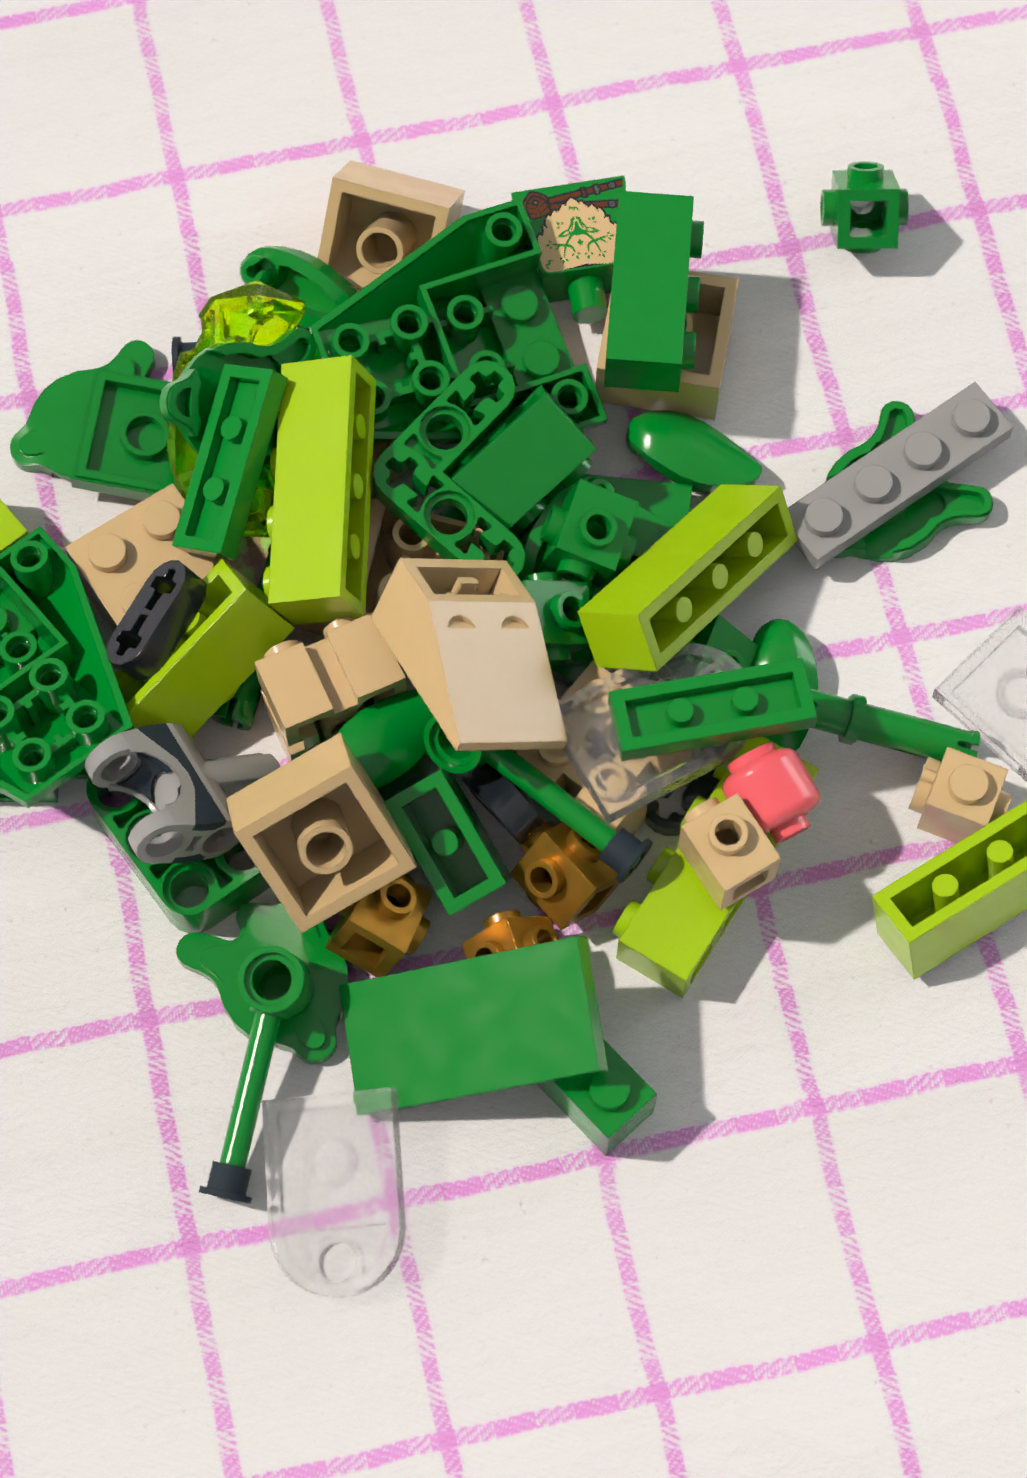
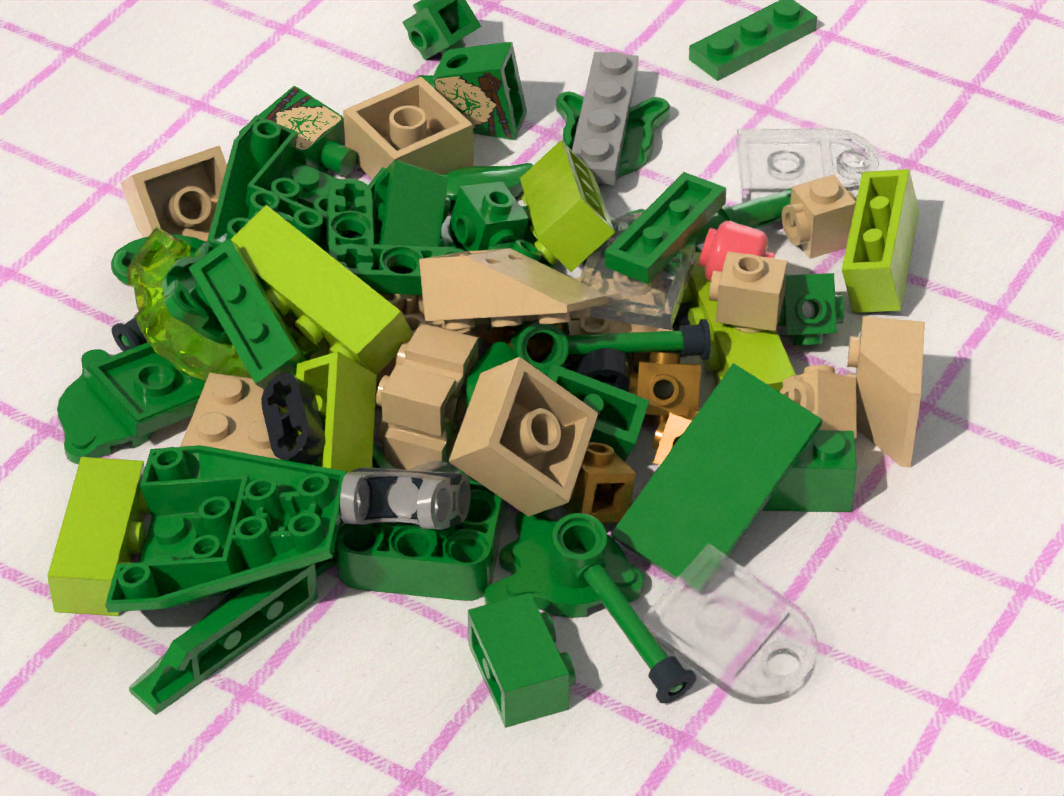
camera: 45 degrees left, 25 degrees down
(126, 1039) = (520, 659): none -> green brick
(652, 292) = (386, 99): green brick -> none
(669, 1030) = (825, 395): none -> tan brick
(766, 1067) = (888, 383): none -> tan slope
(801, 334) = (483, 87): none -> green torso
(809, 899) = (826, 307): none -> green brick

